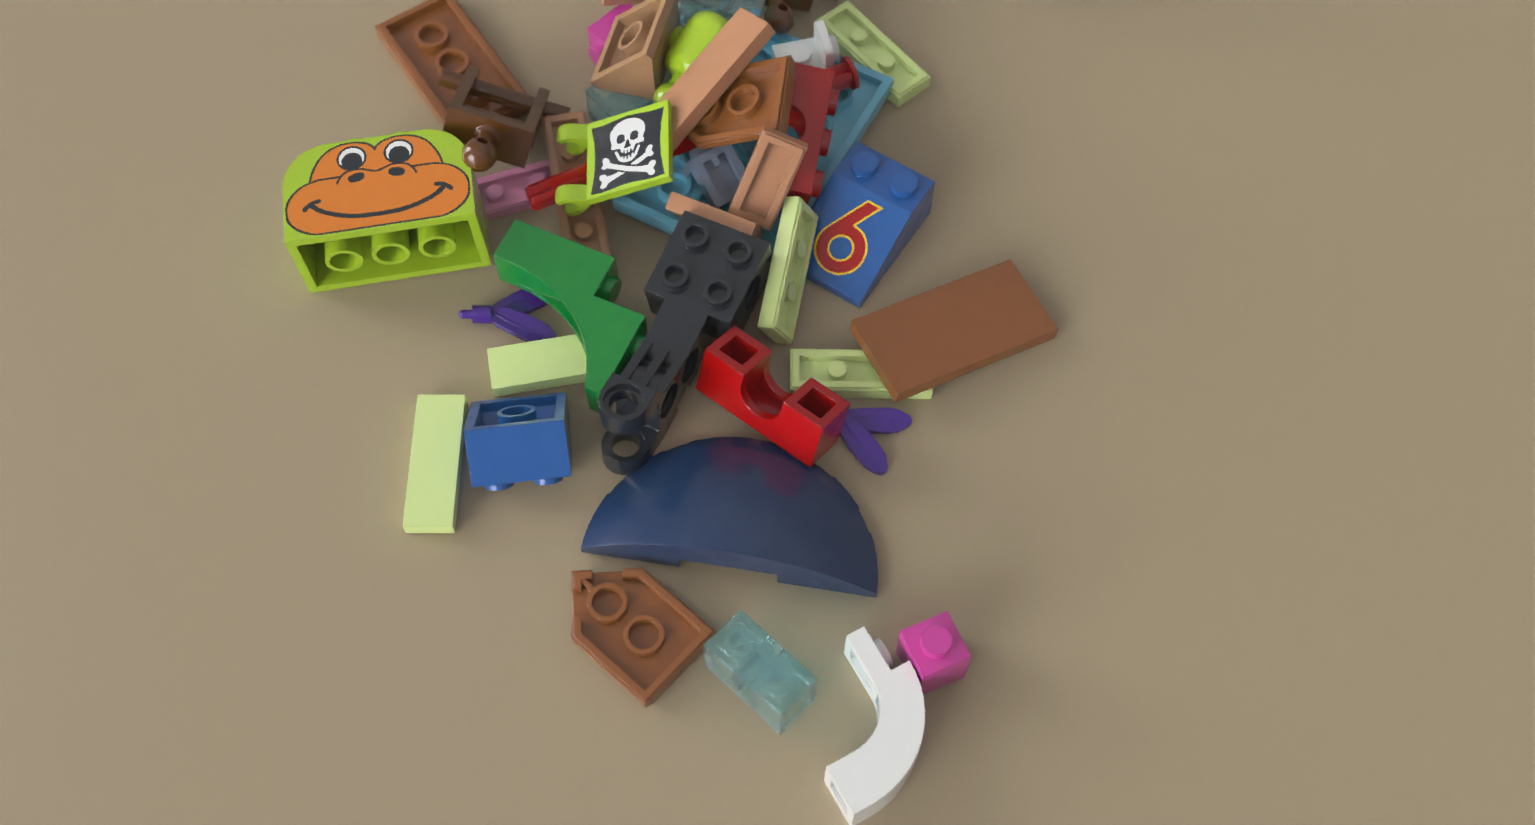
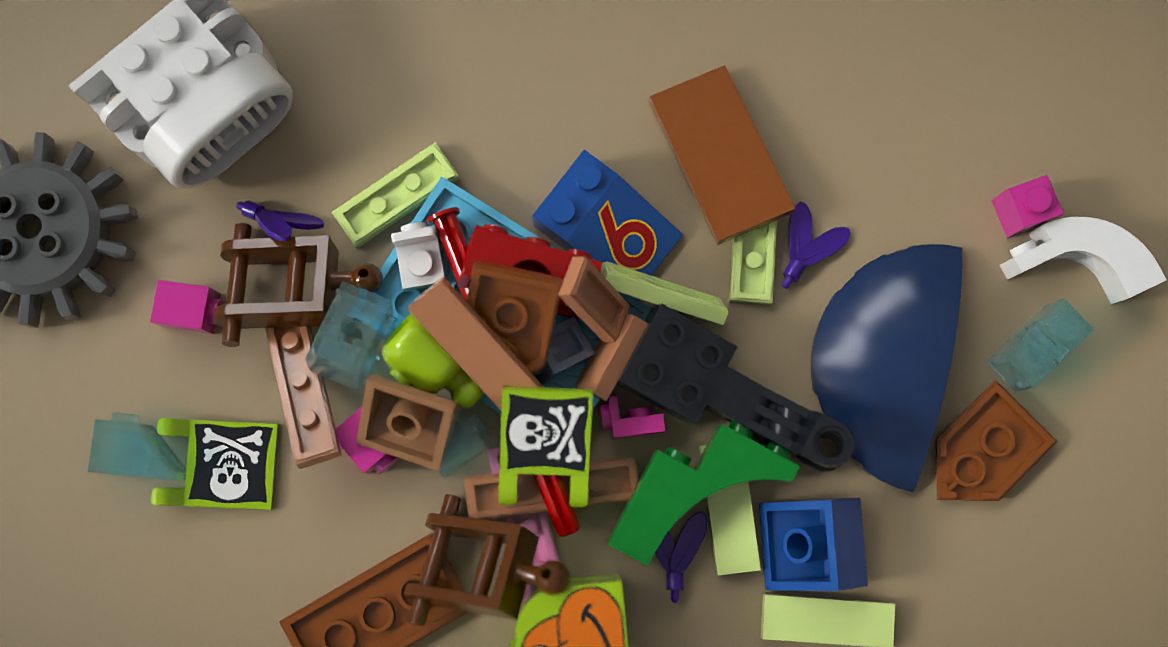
camera: 90 degrees left, 20 degrees up
(647, 249) = (638, 421): none -> dark pink bracket
(740, 381) = (812, 298): red arch -> none

